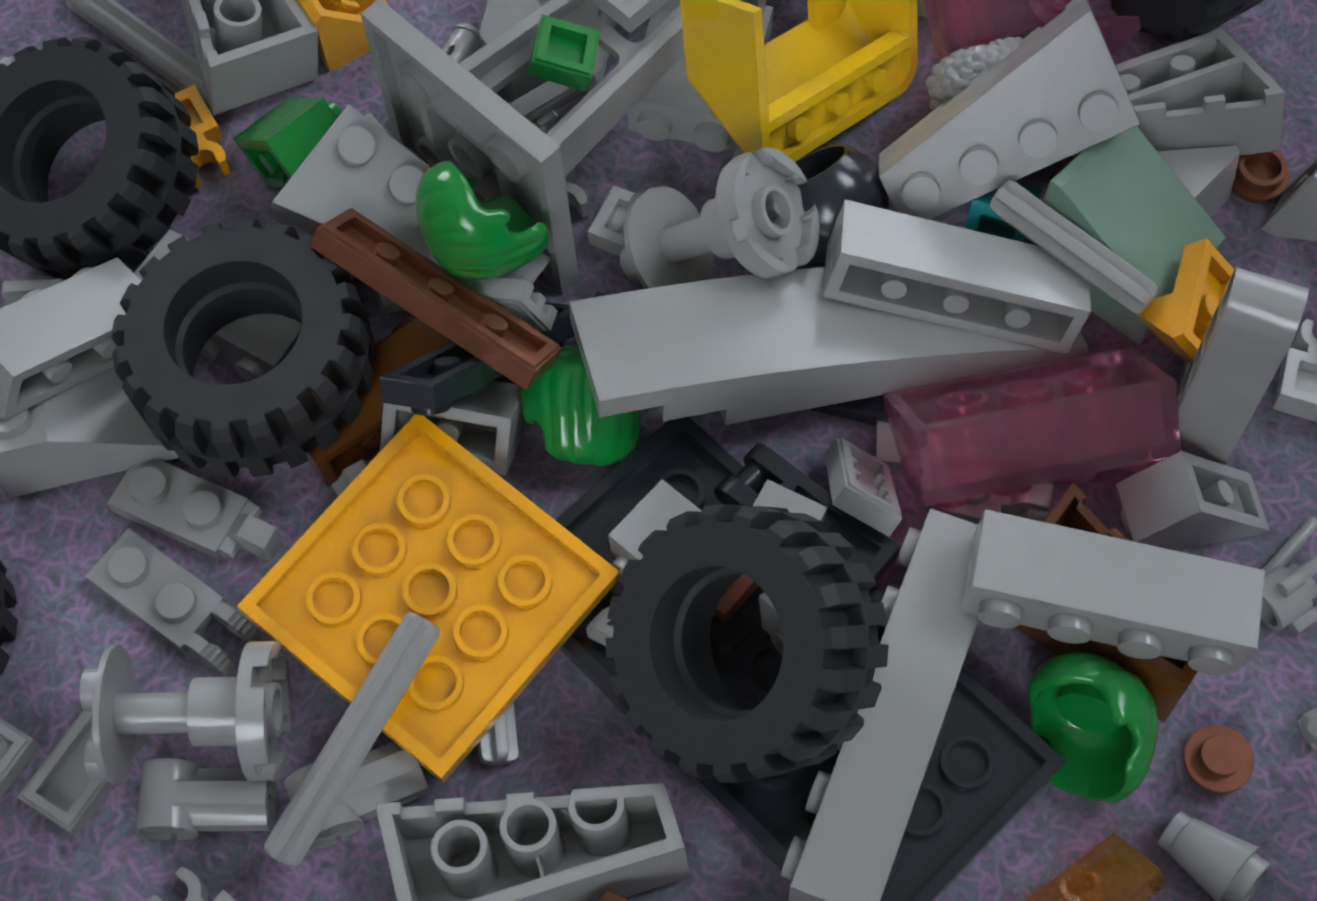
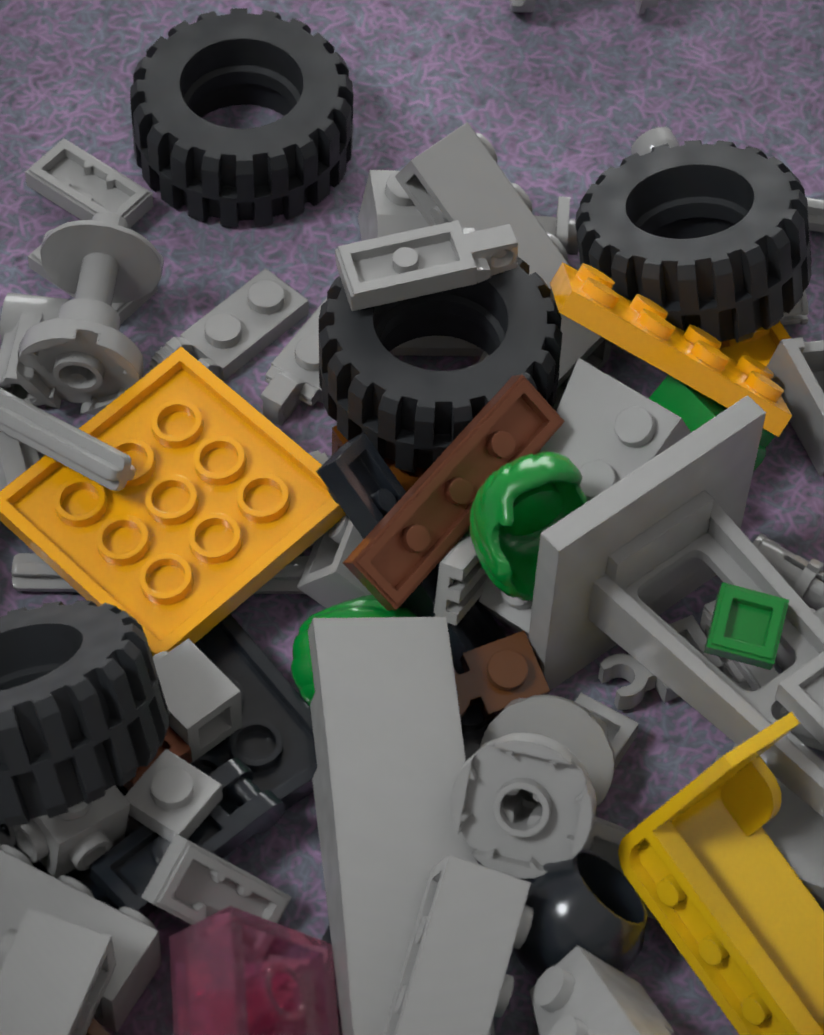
camera: 90 degrees right, 10 degrees down
(175, 336) = (423, 262): none -> light grey hinge
(228, 151) = (685, 355): none -> light orange plate
(587, 274) = (499, 675): none -> reddish brown plate

